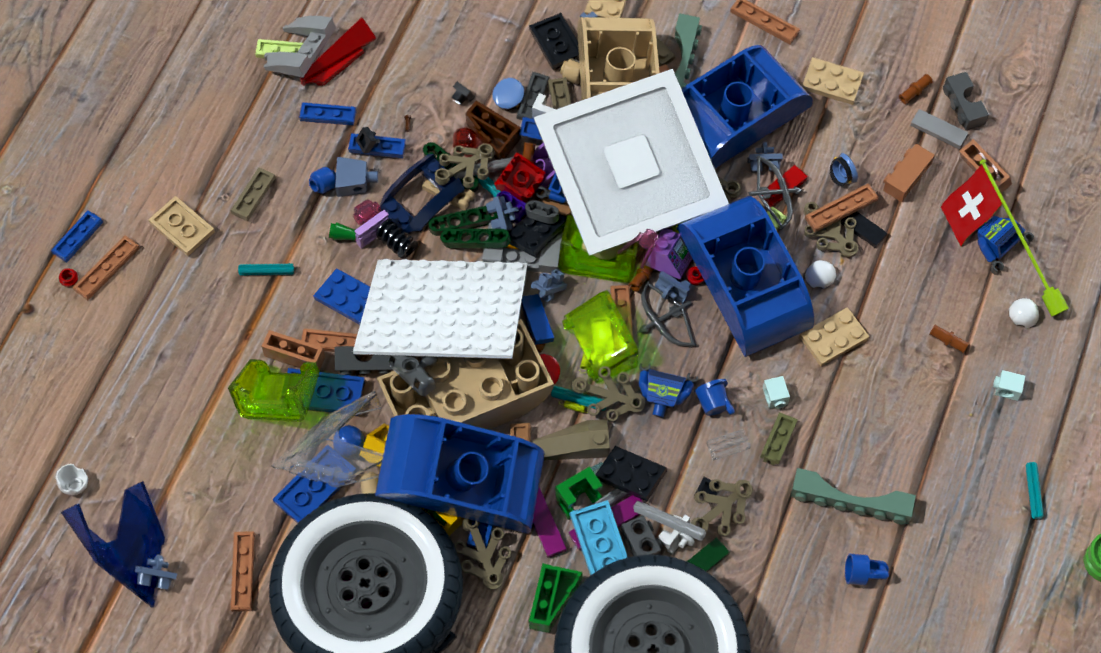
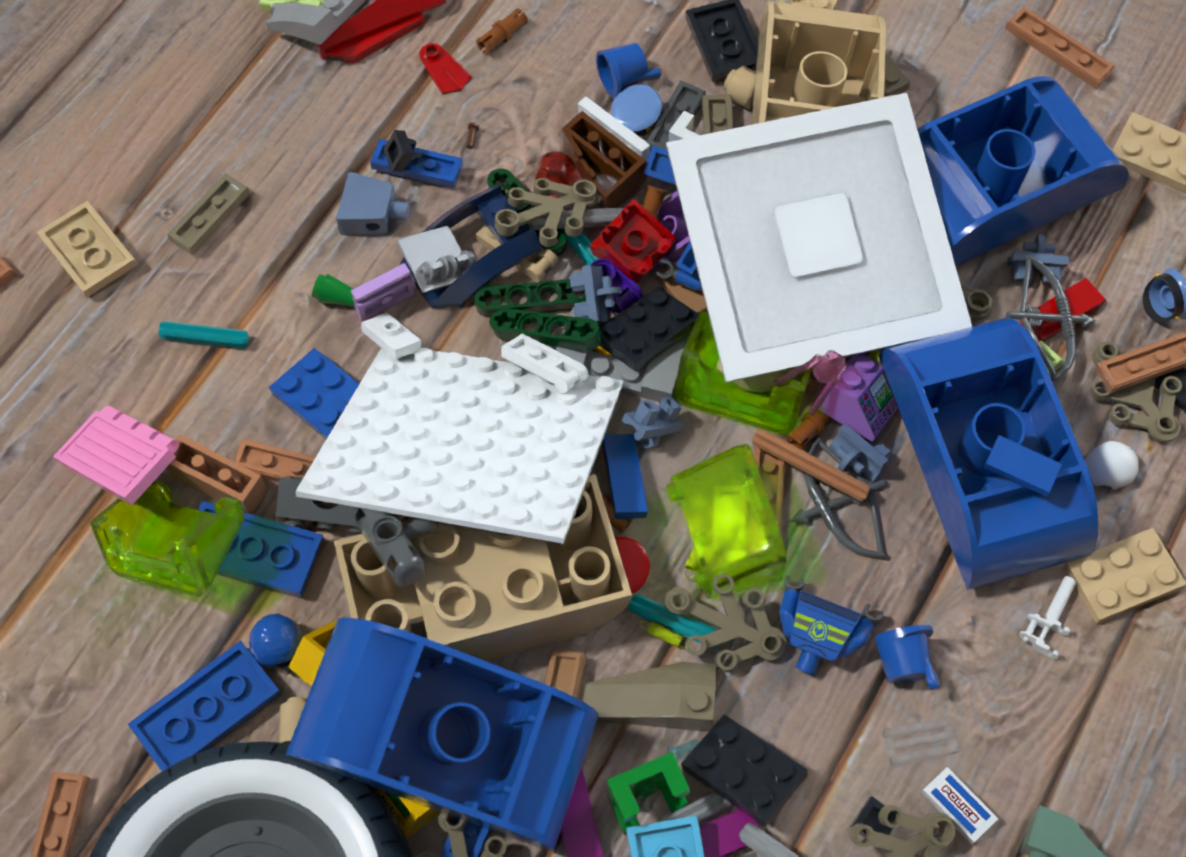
camera: 10 degrees right, 0 degrees up
(232, 346) = (117, 453): none -> bright pink hinge
(322, 180) = (319, 205): blue head -> none
(325, 458) = (223, 665): clear windscreen -> none
(327, 114) = (351, 106): blue tile -> none
(365, 211) = (377, 262): clear pink head -> none
(382, 82) = (444, 69): none -> red piece
(382, 254) = (391, 335): none -> white plate
(396, 239) = (418, 312): black piece -> none
(401, 203) = (435, 258): none -> light grey hinge
(415, 53) = (501, 31): none -> dark orange pin
(461, 93) = (562, 100): black tile -> none
(479, 258) = (545, 362): none -> white plate
(495, 68) = (623, 67): none -> blue hat
(498, 108) = (615, 127): none -> white plate
(542, 212) = (660, 300): dark grey beam -> none
(645, 297) = (811, 465): none -> nougat axle
(685, 35) = (930, 56): sand green arch -> none
(695, 280) = (892, 443): red plate -> none
(757, 477) = (960, 804): none -> tile
(765, 280) = (1022, 465): none -> blue tile
(776, 392) = (1015, 661): light aqua brick -> none
(778, 439) = (1010, 744): olive hinge -> none
(794, 367) = (1050, 621): none -> white piece

